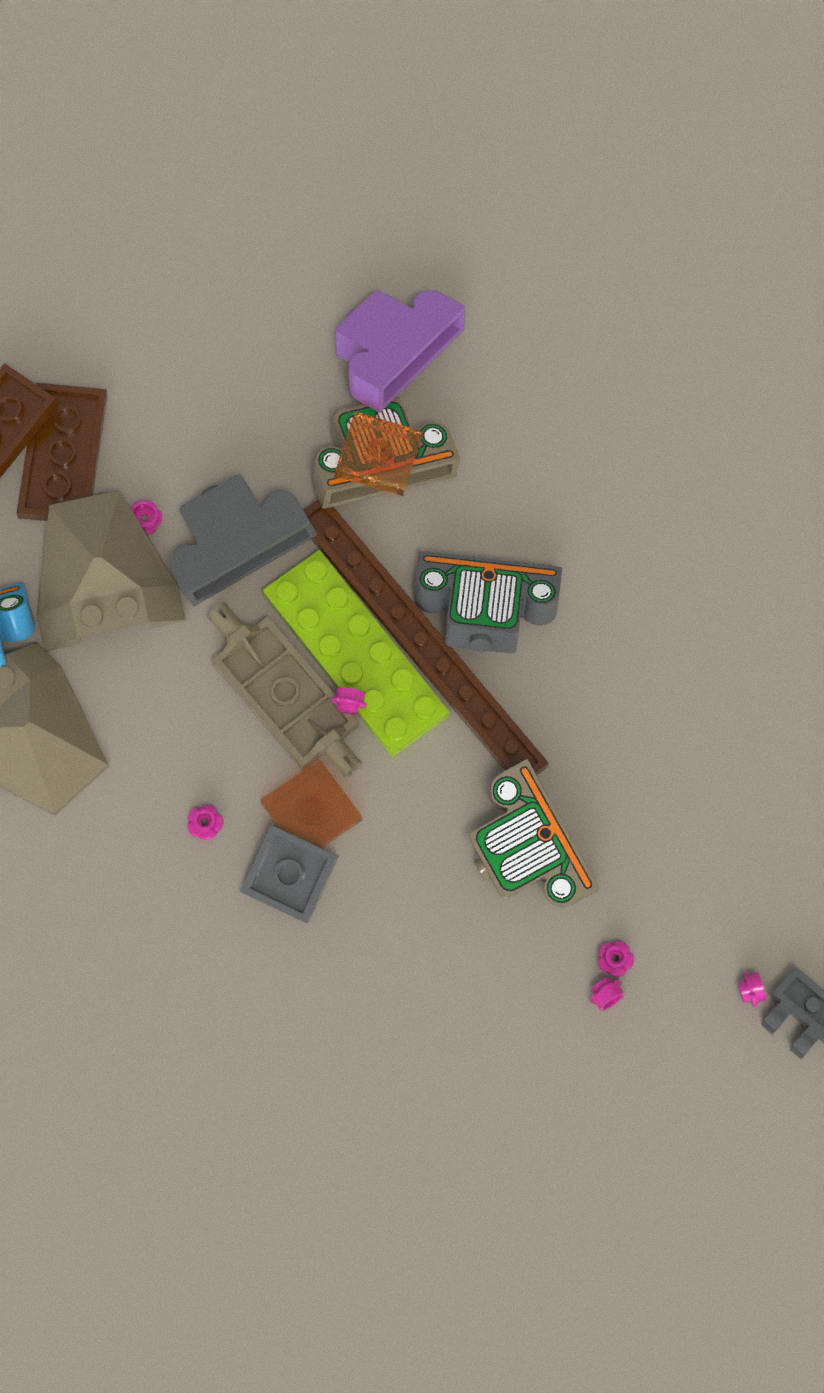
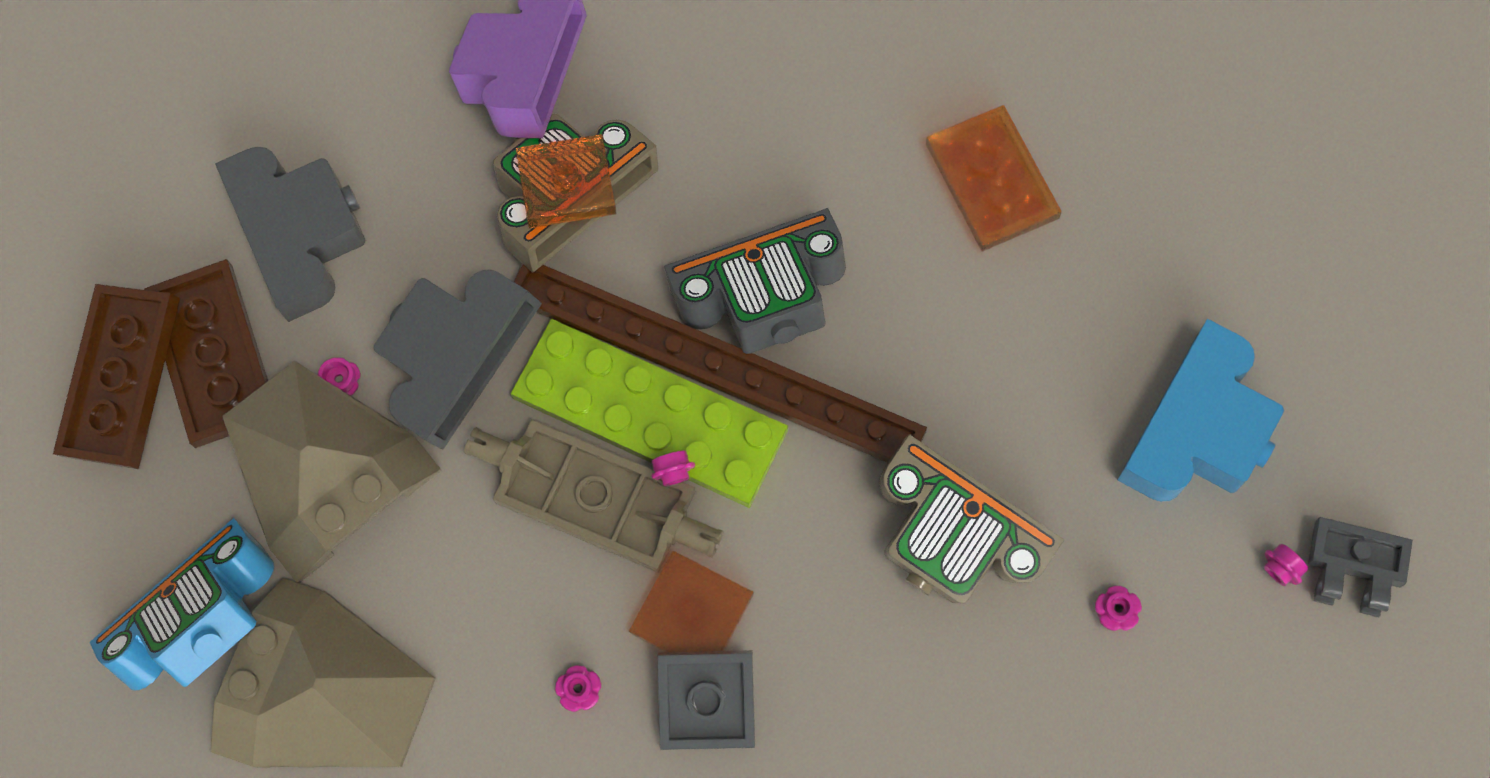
camera: 20 degrees left, 0 degrees up
(166, 386) = (292, 224): none -> dark grey brick
(606, 993) = (1131, 653): dark pink plate -> none
(700, 605) = (993, 178): none -> clear orange plate
(752, 858) = (1205, 422): none -> dark azure brick

